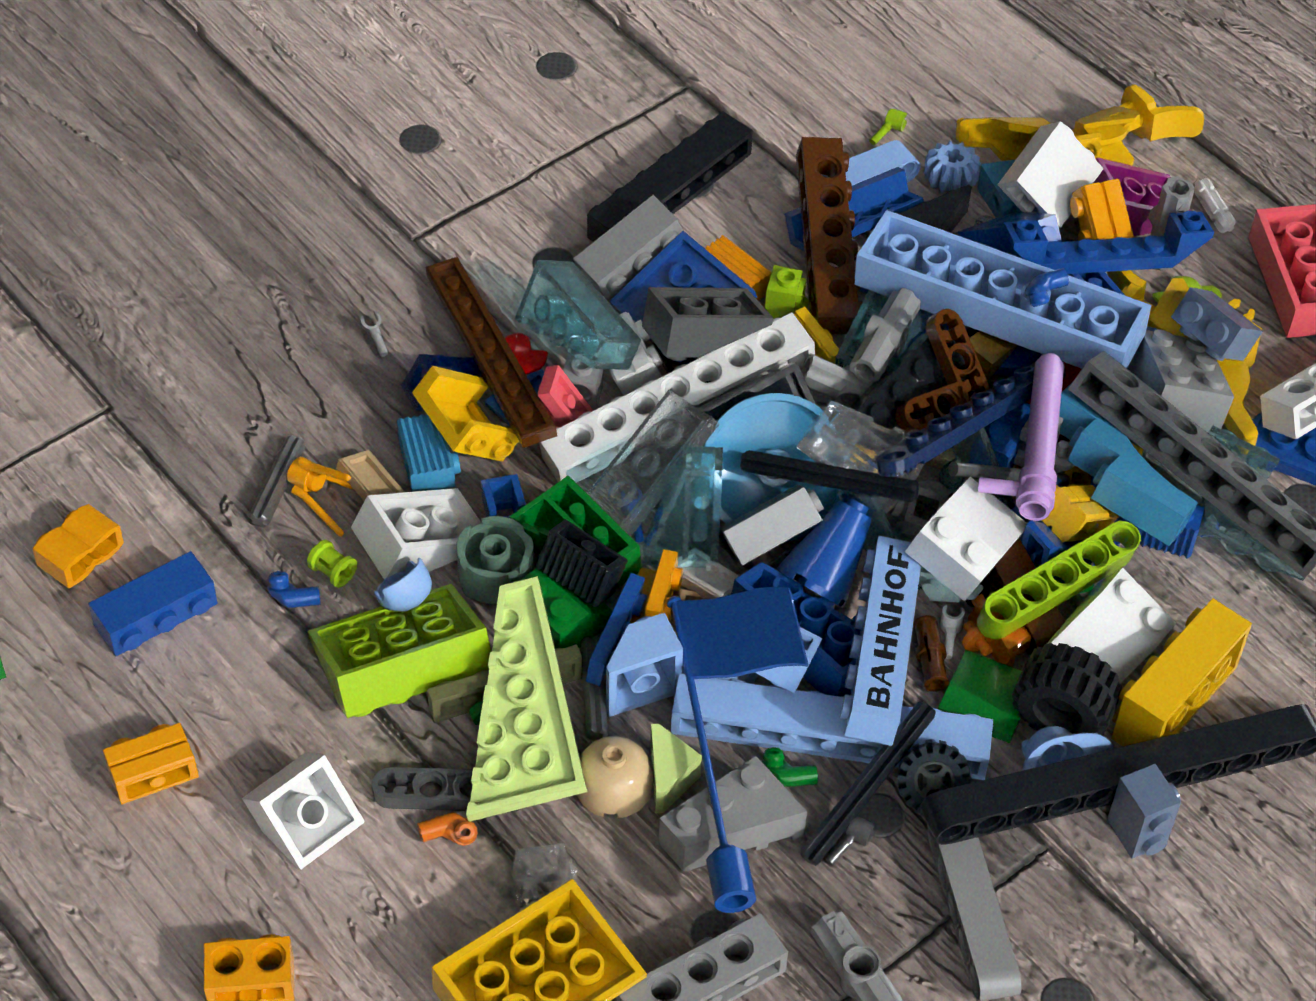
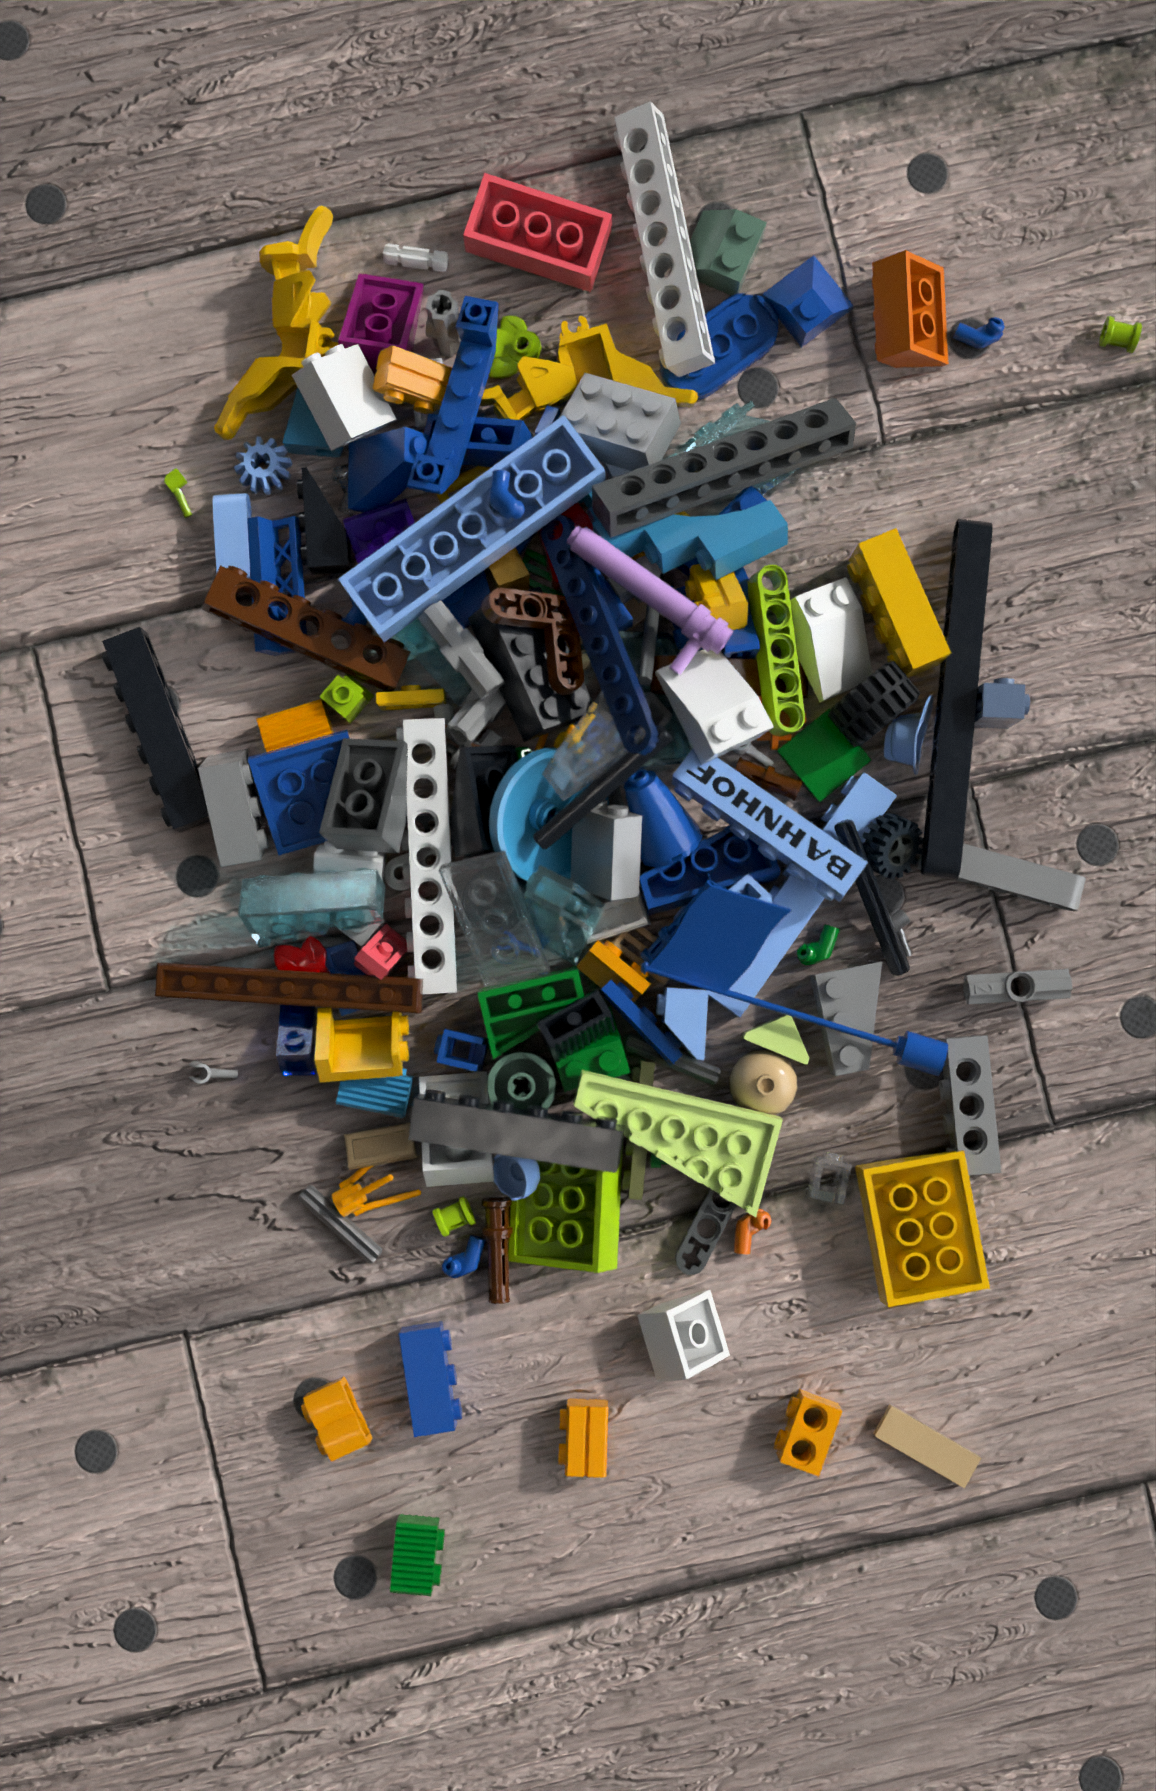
camera: 60 degrees left, 35 degrees up
(337, 609) = (497, 1234): none -> reddish brown pin
(449, 551) = (517, 1132): none -> black brick
(1216, 325) = (595, 364): sand blue brick -> none

